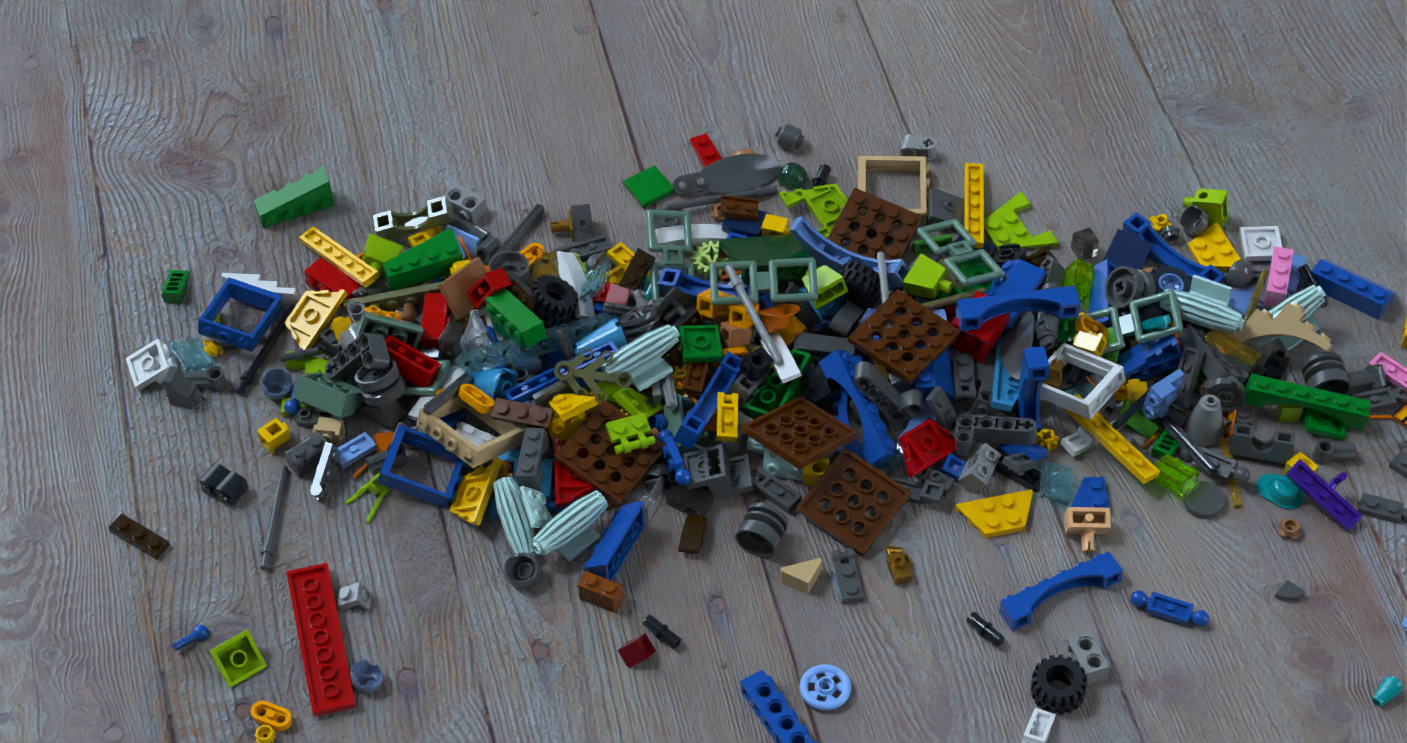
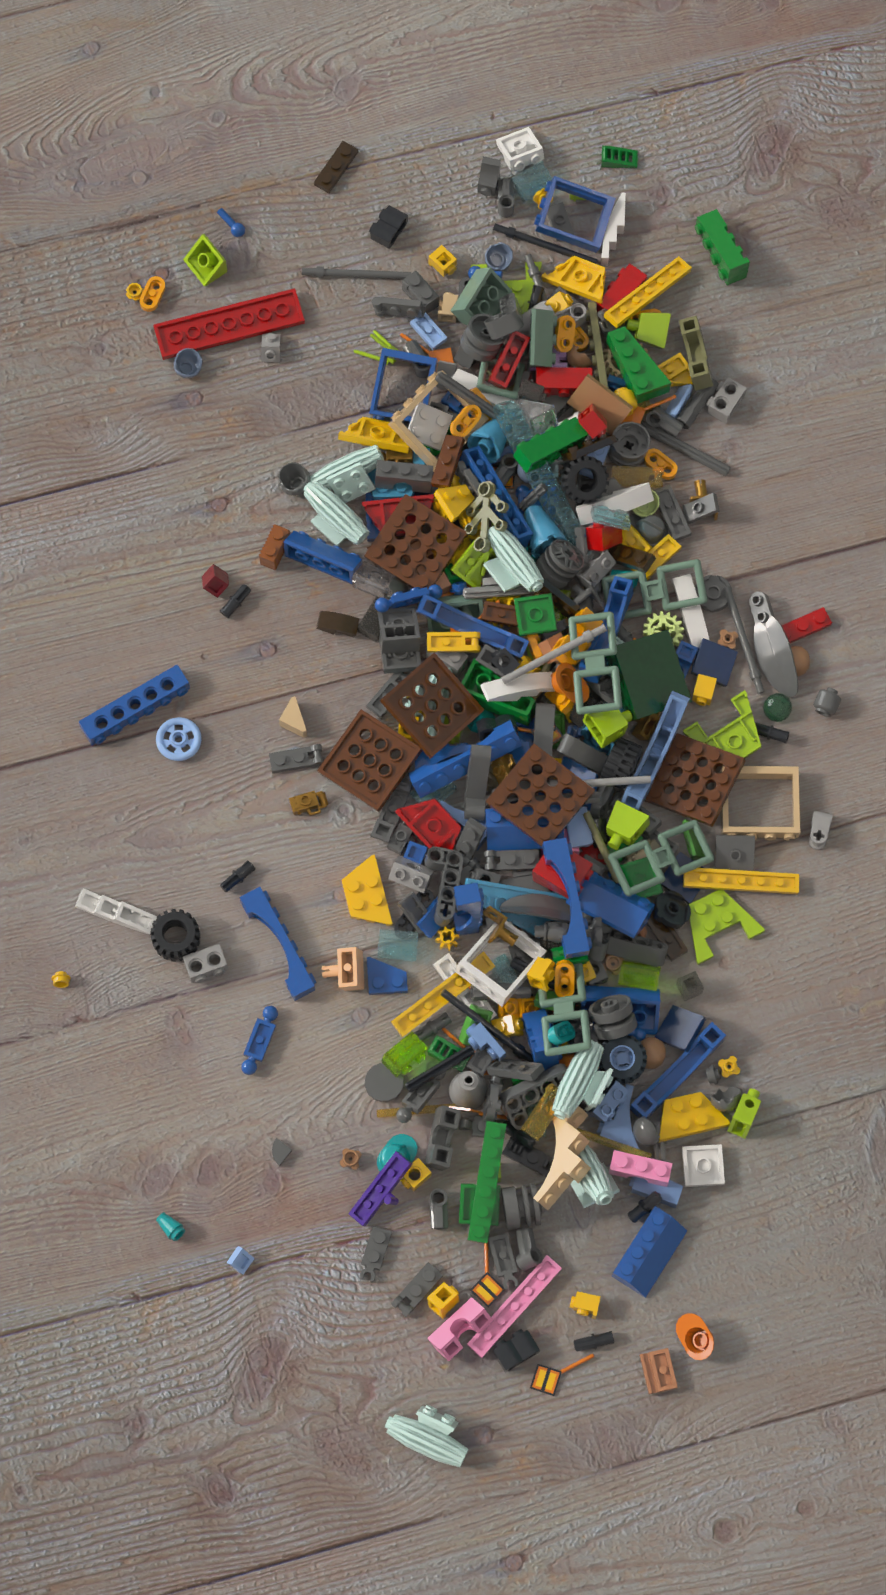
camera: 85 degrees right, 20 degrees up
(629, 428) = (434, 555): lime plate -> none
(648, 186) = (759, 570): green tile -> none
(739, 208) = (726, 653): reddish brown plate -> none
(761, 530) = (335, 679): dark grey wheel -> none

